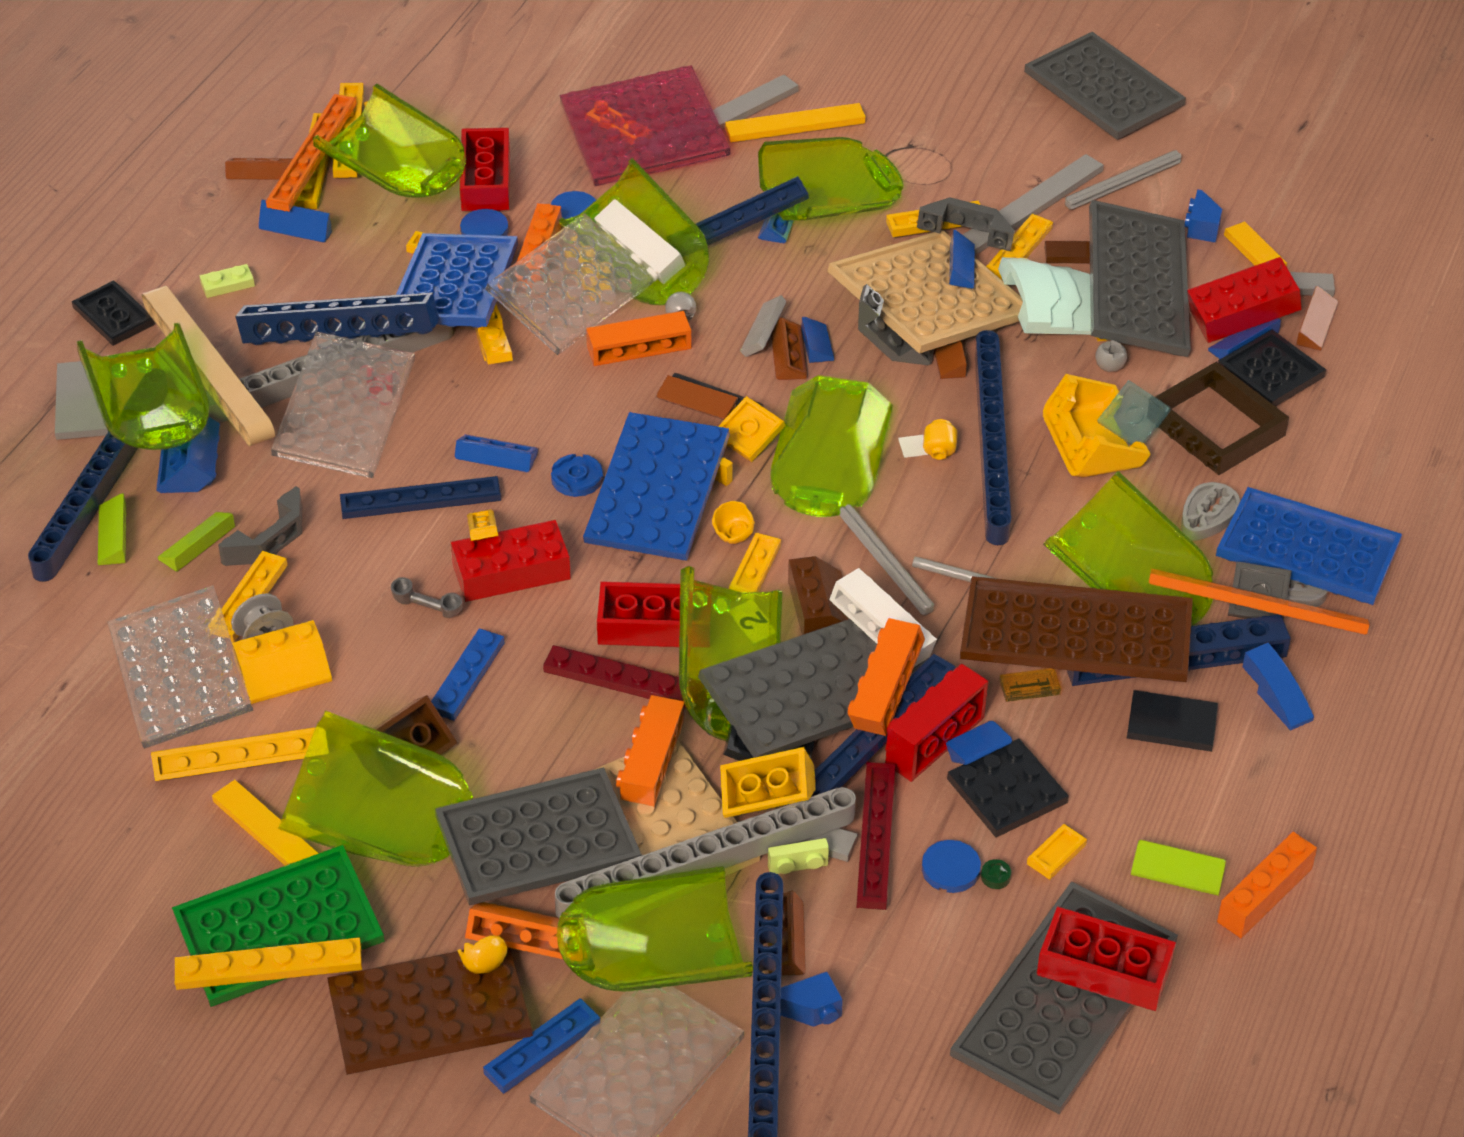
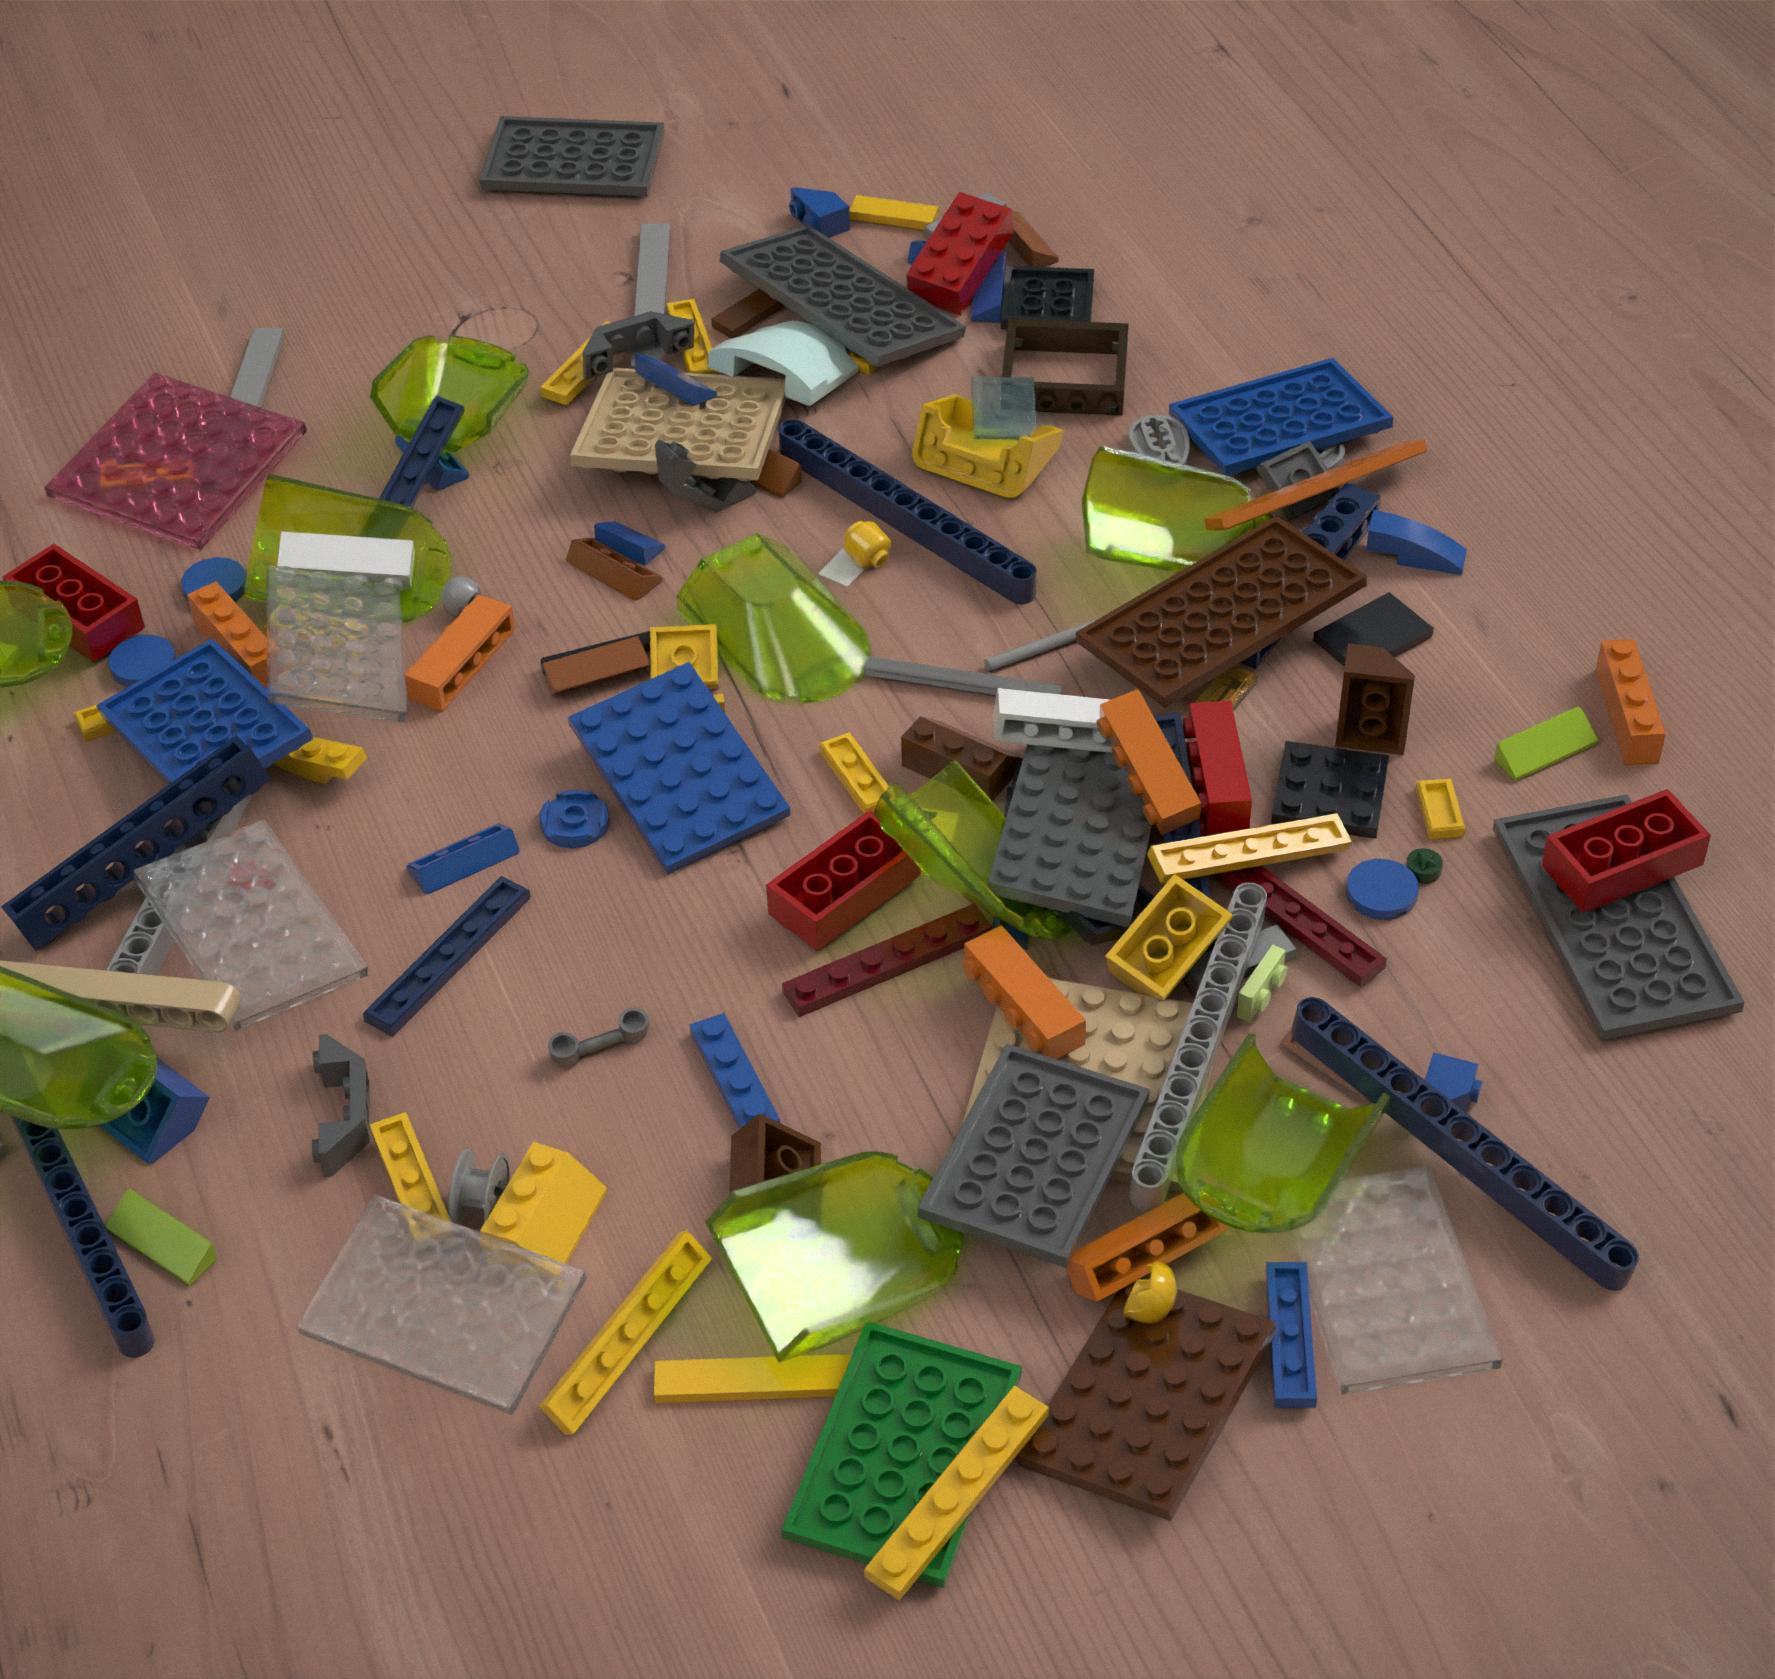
camera: 45 degrees left, 0 degrees up
(197, 540) = (269, 1174): lime slope -> none
(482, 524) = (568, 925): yellow tile -> none
(511, 561) = (633, 939): red brick -> none
(733, 522) = (793, 747): yellow hair -> none
(763, 326) = (564, 560): light grey tile -> none
(795, 122) = (327, 363): yellow tile -> none
(891, 775) = (1249, 848): none -> yellow plate
(977, 743) = (1266, 769): blue slope -> none
(1079, 746) = (1374, 701): none -> reddish brown slope
(1111, 356) = (907, 376): light grey piece -> none
(1123, 179) = (702, 226): light grey axle -> none

